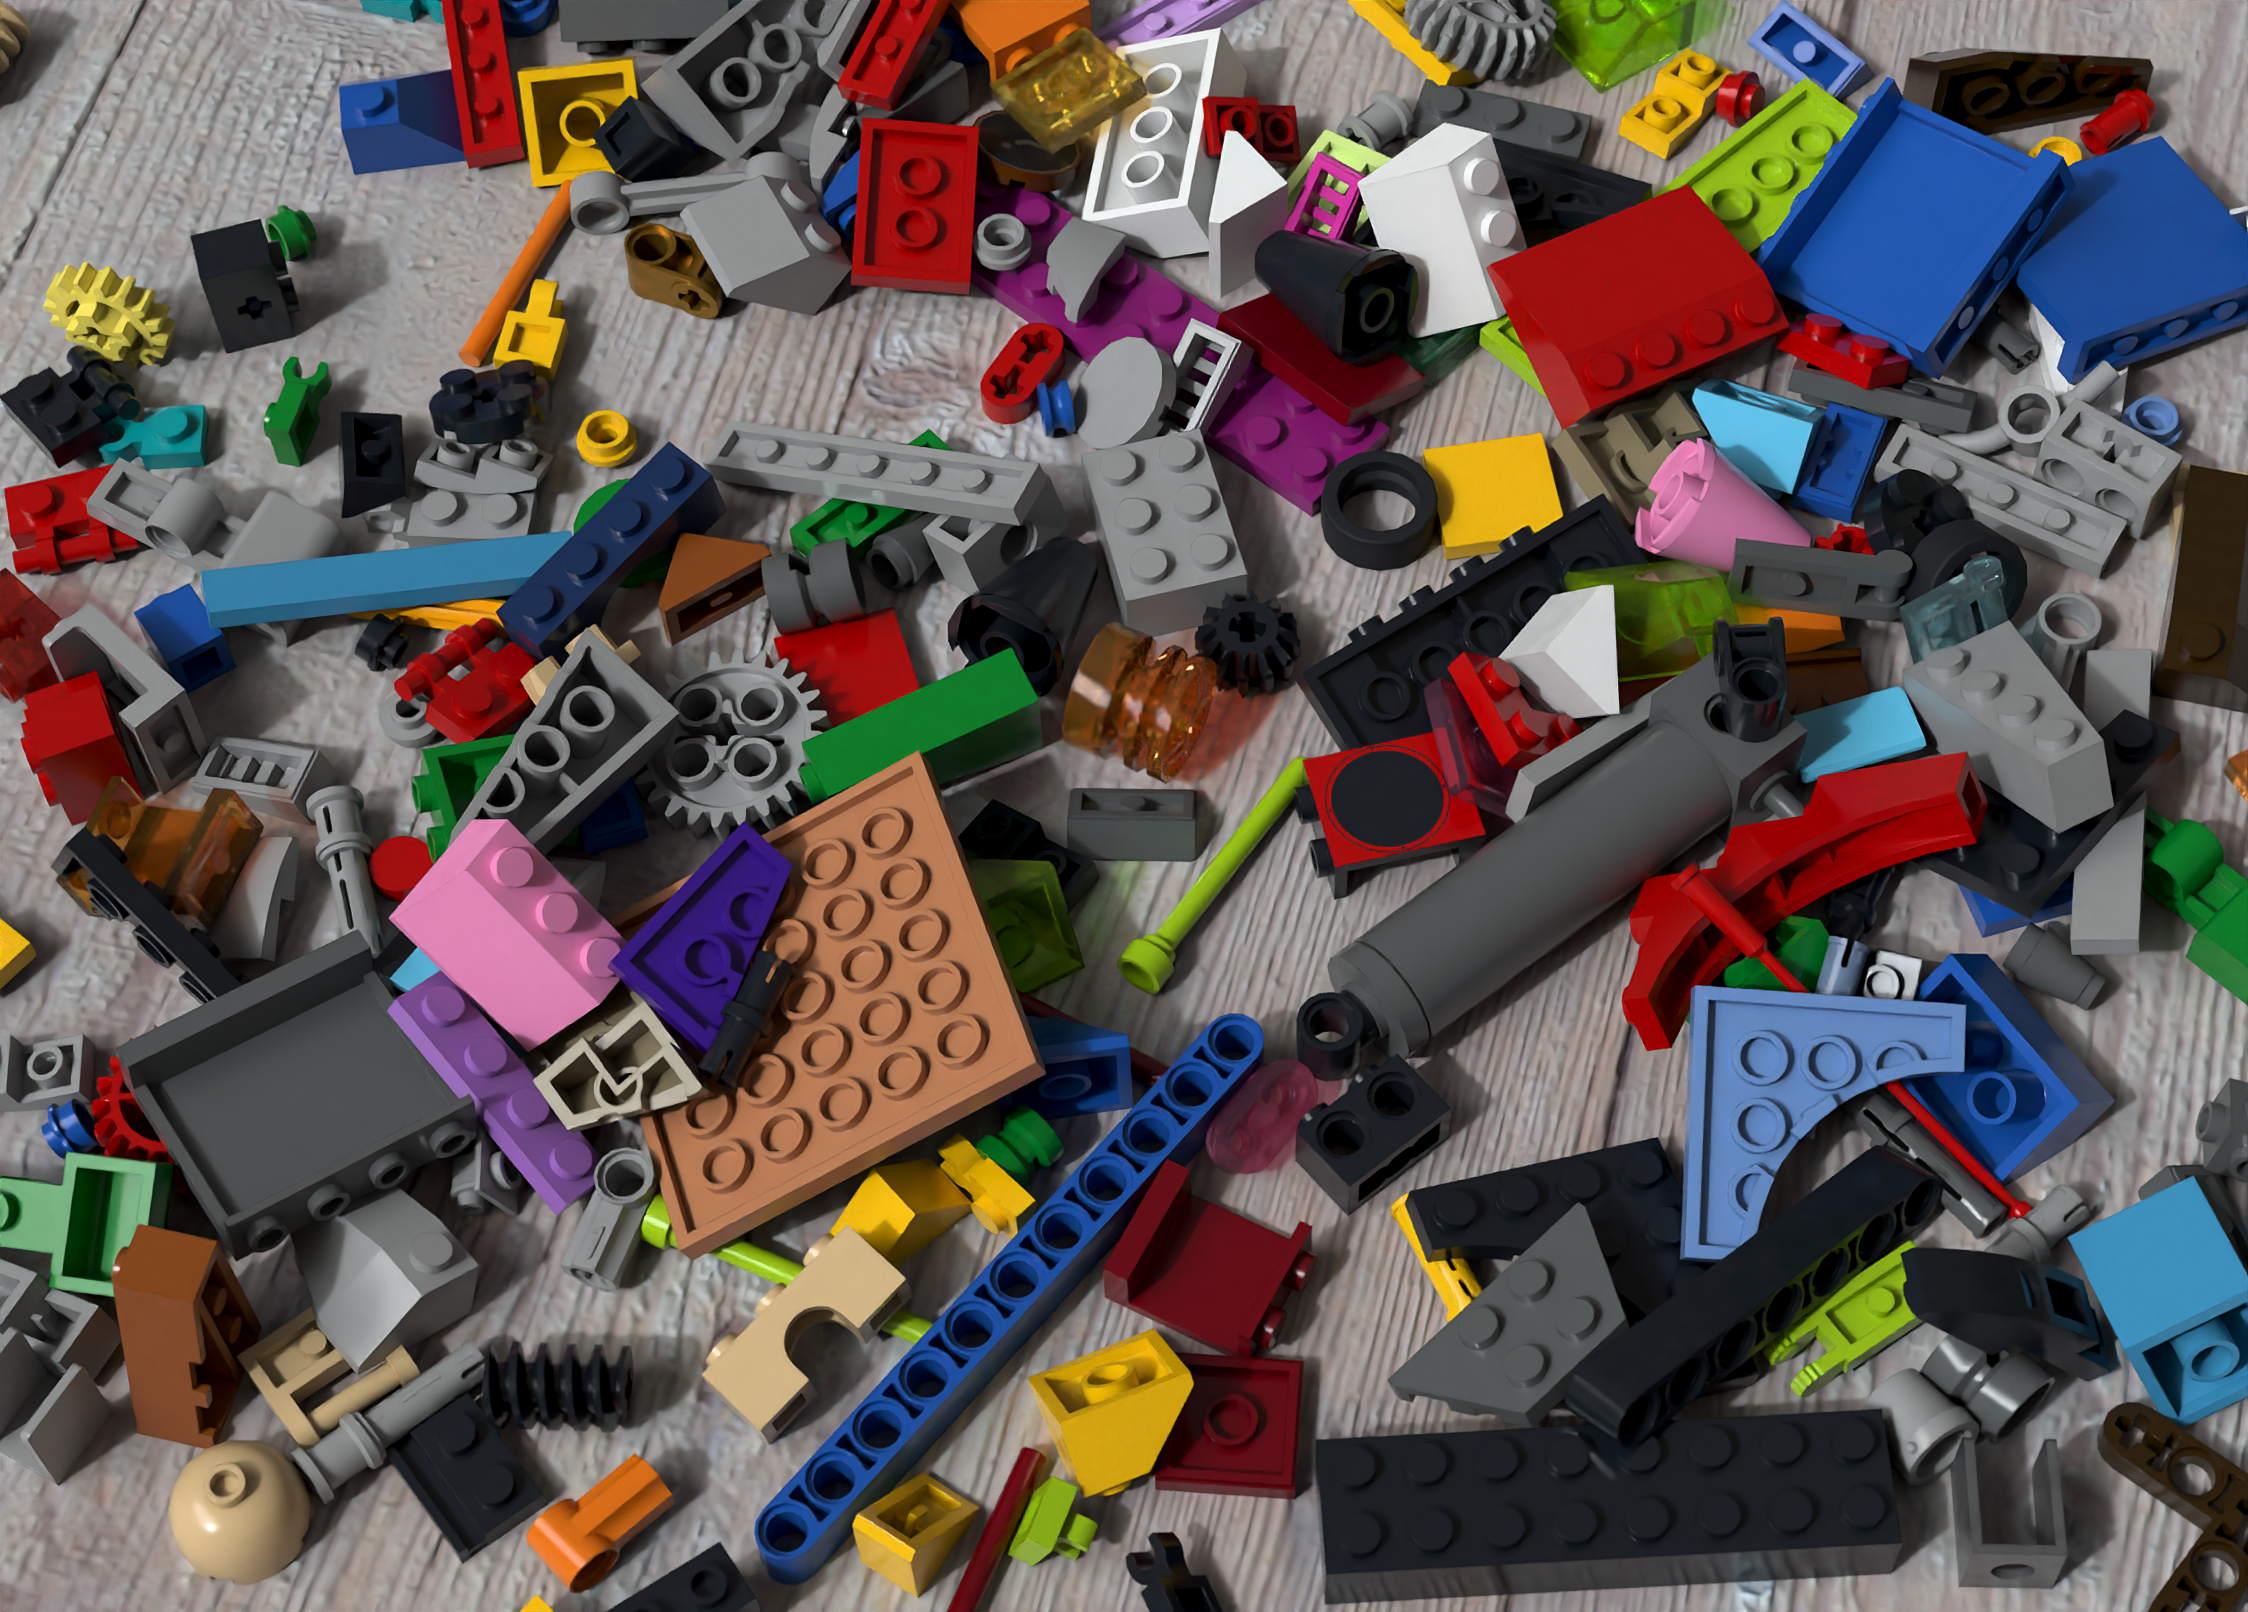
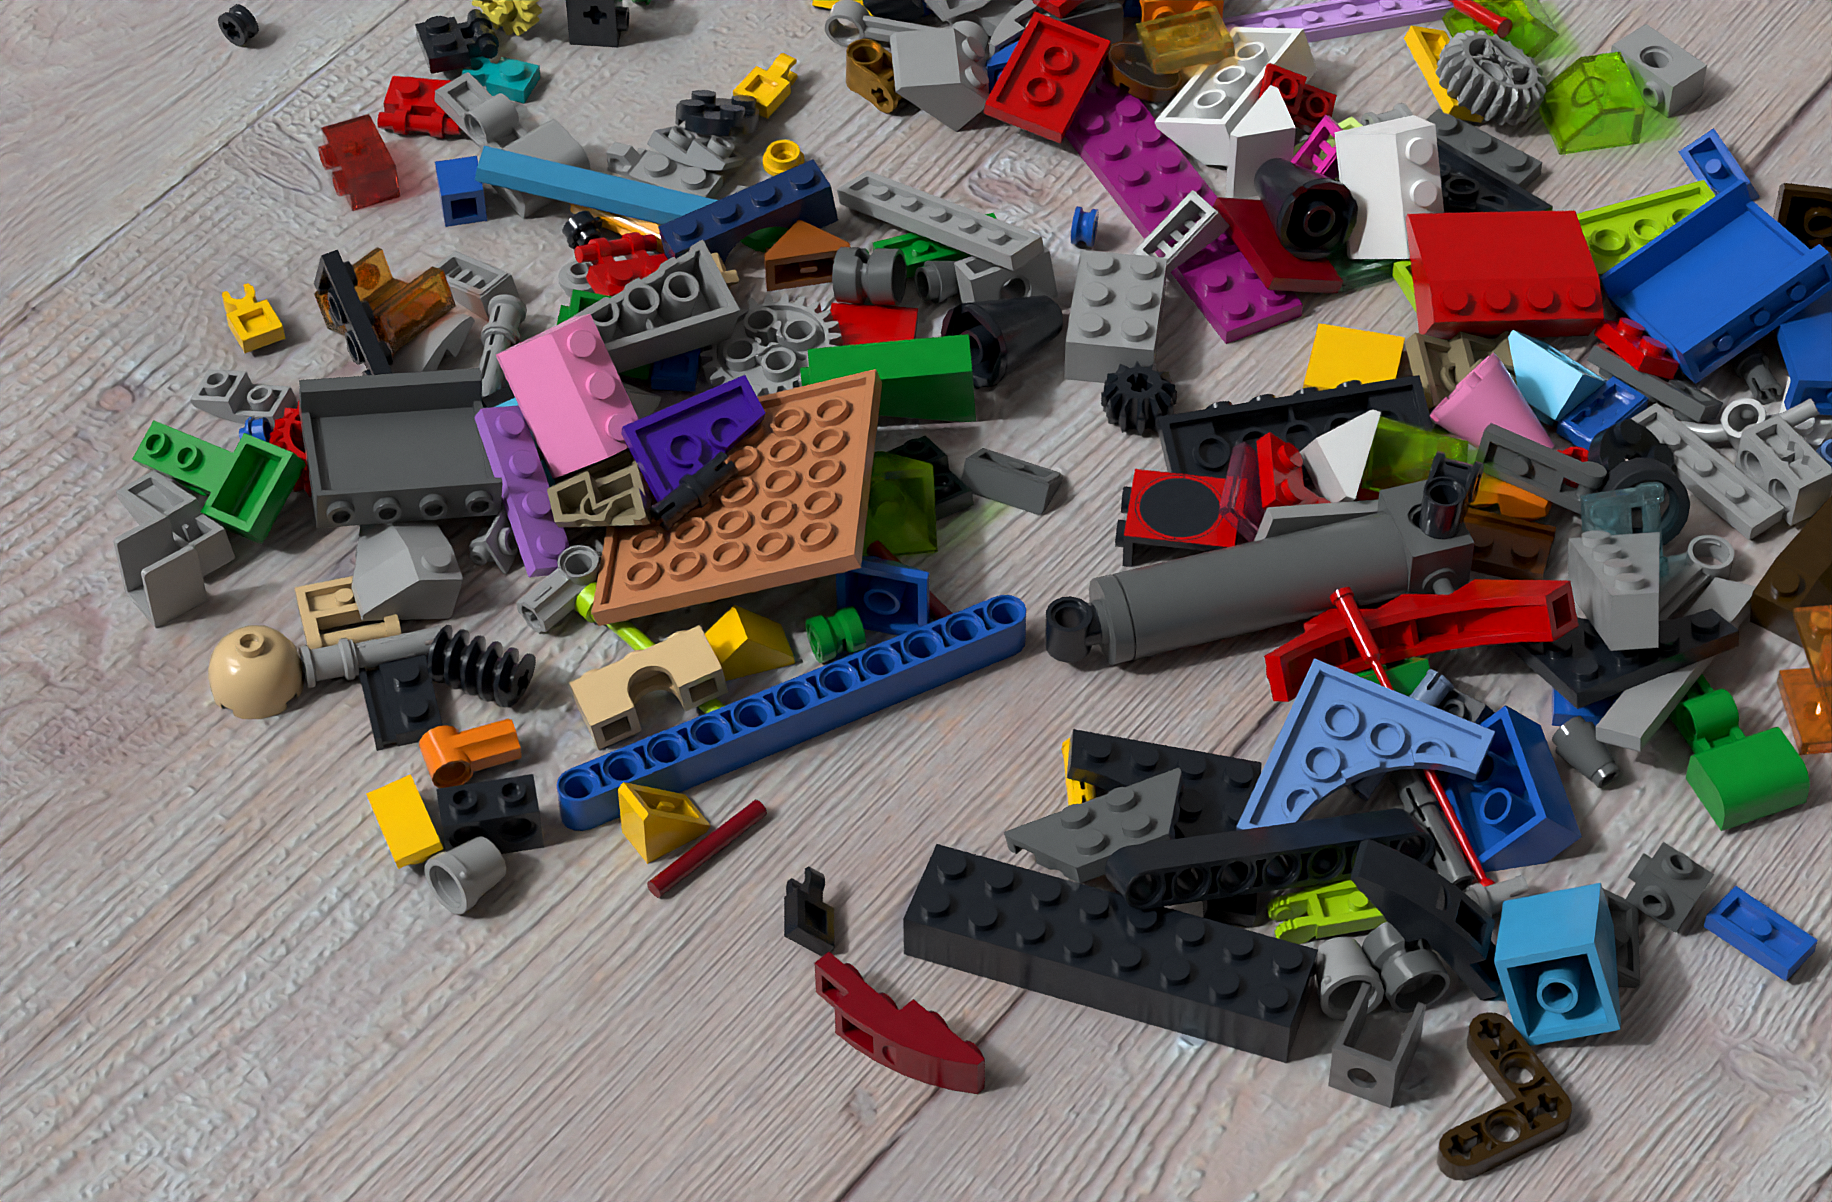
camera: 20 degrees right, 10 degrees down
(75, 744) = (363, 220): red brick -> none
(156, 706) = (403, 189): light grey panel -> none
(181, 1333) = (265, 551): dark orange wedge -> none
(295, 416) = (591, 87): green plate -> none
(370, 461) = (625, 125): black slope -> none
(518, 278) = (766, 58): orange bar -> none
(996, 1197) = (809, 650): yellow plate -> none
(1002, 242) = (1095, 116): light grey plate -> none
(1013, 367) = (1084, 191): red beam -> none
(1051, 1526) = (749, 845): lime tile -> none
(1079, 261) = (1141, 140): light grey slope -> none
(1113, 1410) = (816, 797): yellow slope -> none
(1124, 394) = (1132, 225): light grey tile -> none
(1139, 702) = (1045, 403): clear orange wheel -> none
(1149, 960) = (979, 557): lime piece -> none
(1207, 1268) = (923, 738): dark red panel -> none
(1235, 1428) = (893, 833): dark red tile -> none
(1258, 1120) = (1002, 667): clear pink plate -> none
(1379, 472) = (1270, 325): black tyre -> none
(1384, 1142) = (1071, 696): black brick -> none
(1677, 106) = (1612, 172): yellow slope -> none
(1740, 98) = (1651, 178): red plate -> none
(1853, 907) = (1470, 674): black pin -> none
(1859, 733) = (1519, 565): medium azure slope -> none

